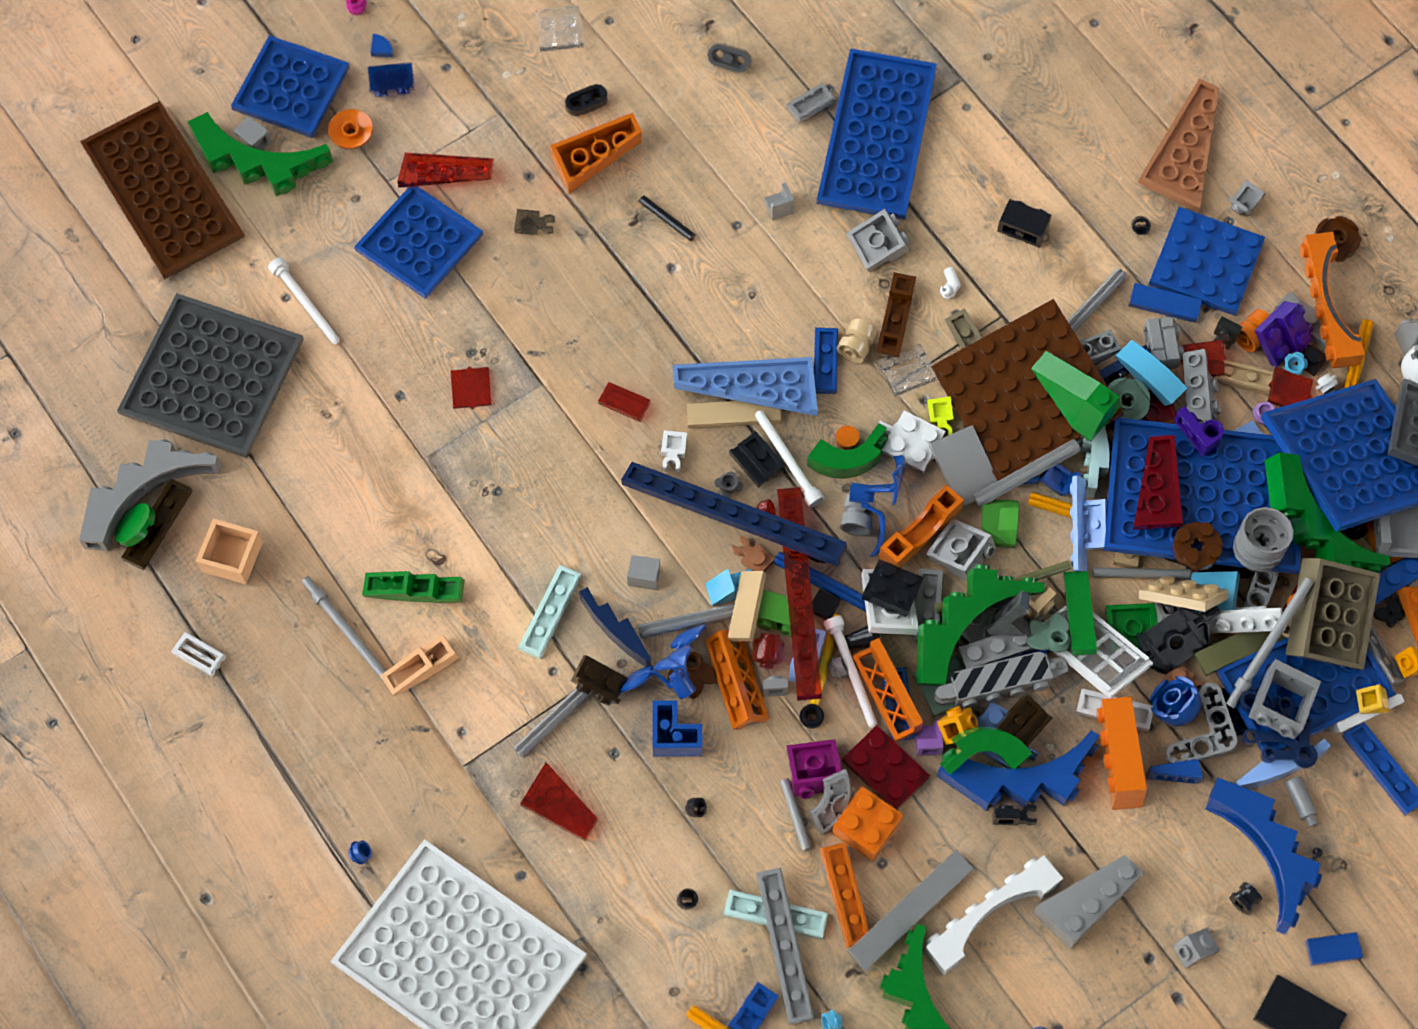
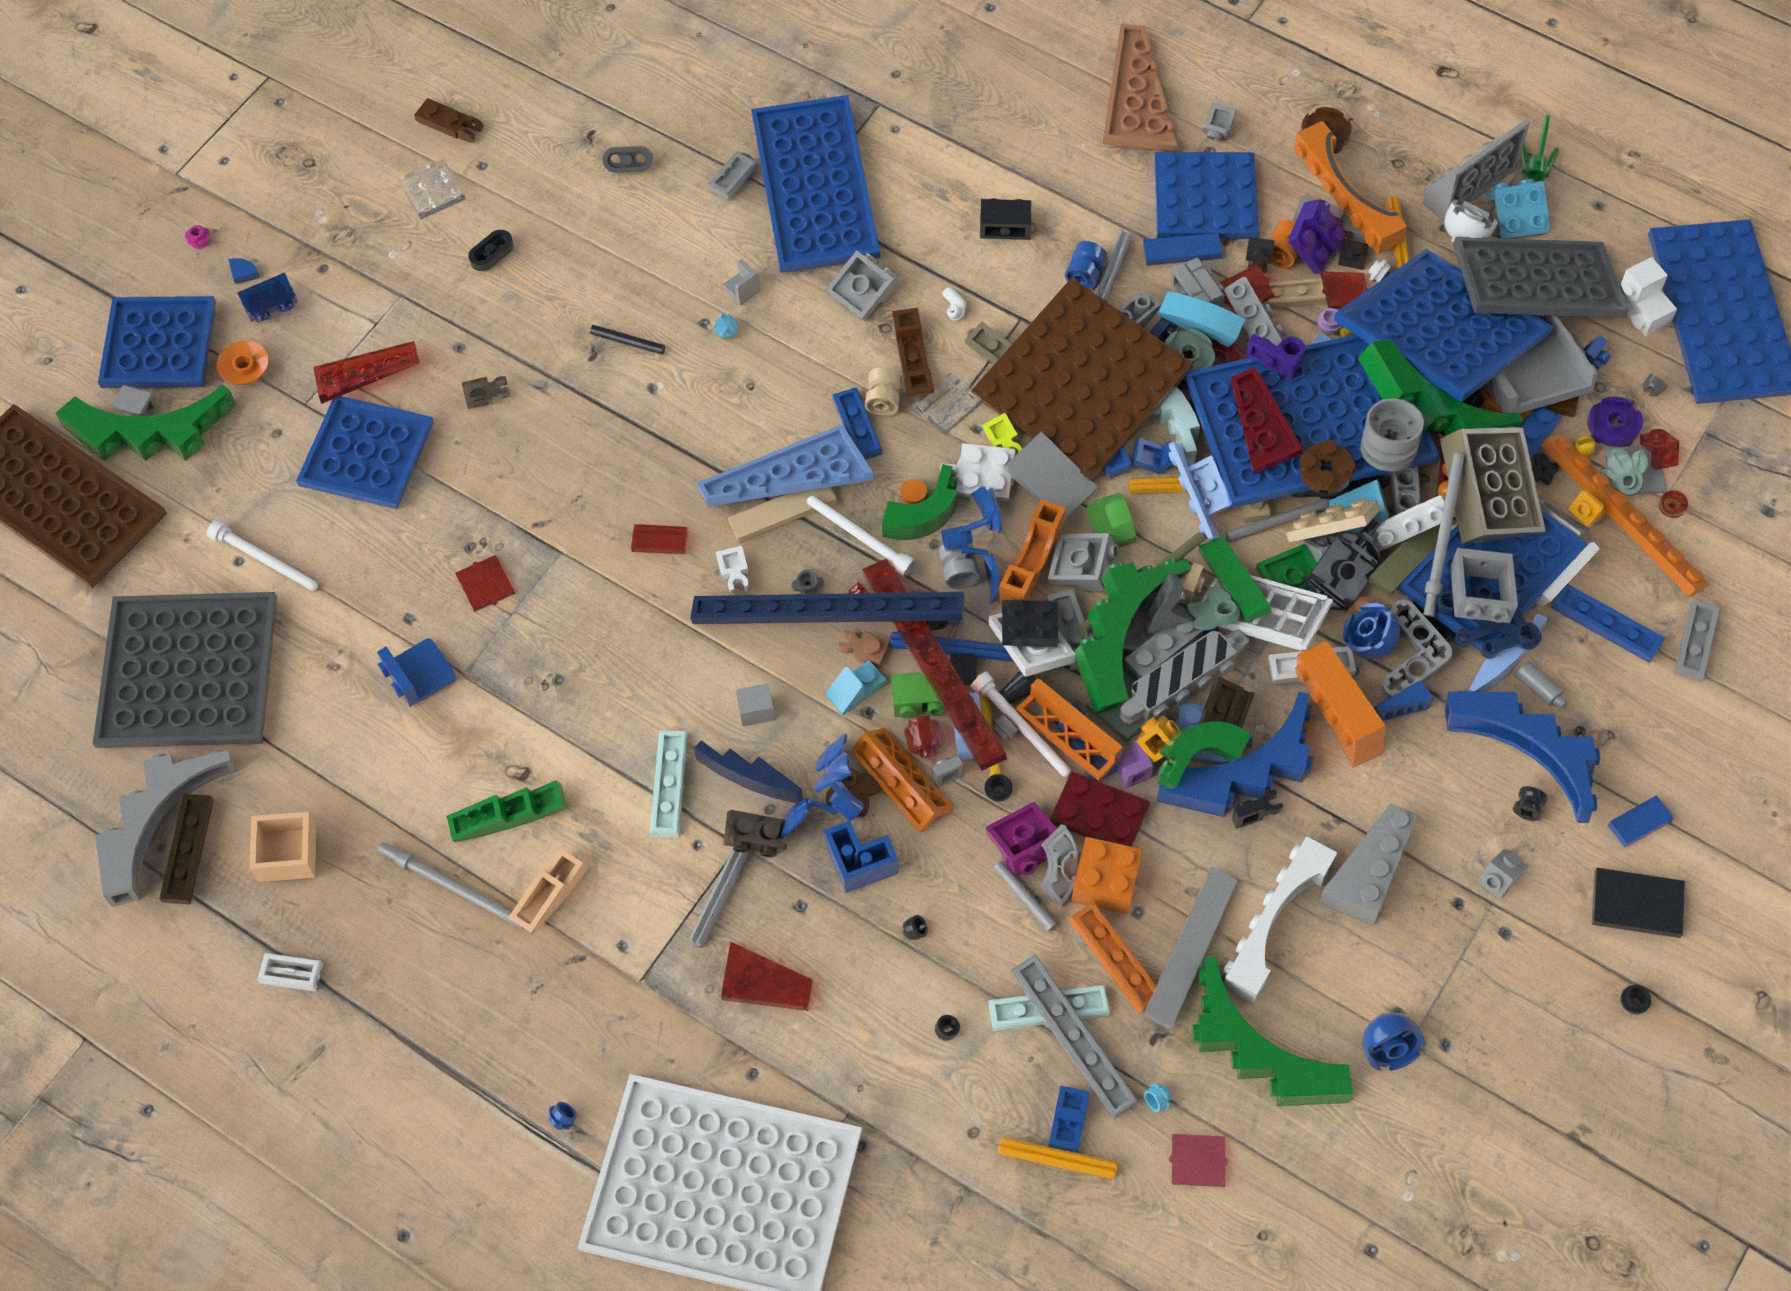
camera: 20 degrees left, 5 degrees down
(133, 525) = (161, 858): green tile -> none
(387, 443) = (416, 671): none -> blue bracket
(594, 150) = (519, 297): orange wedge -> none
(686, 621) = (833, 732): light grey axle -> none
(747, 606) = (883, 697): tan tile -> none
(751, 236) = (726, 326): none -> medium azure plate
(757, 459) = (828, 547): black plate -> none
(1026, 472) = (1117, 460): light grey axle -> none
(1074, 289) = (1086, 263): none -> blue wheel
(1078, 396) = (1141, 361): green wedge -> none
(1140, 229) = (1127, 186): black hinge -> none
(1302, 363) = (1345, 257): medium azure plate -> none
(1372, 700) = (1568, 557): yellow slope -> none

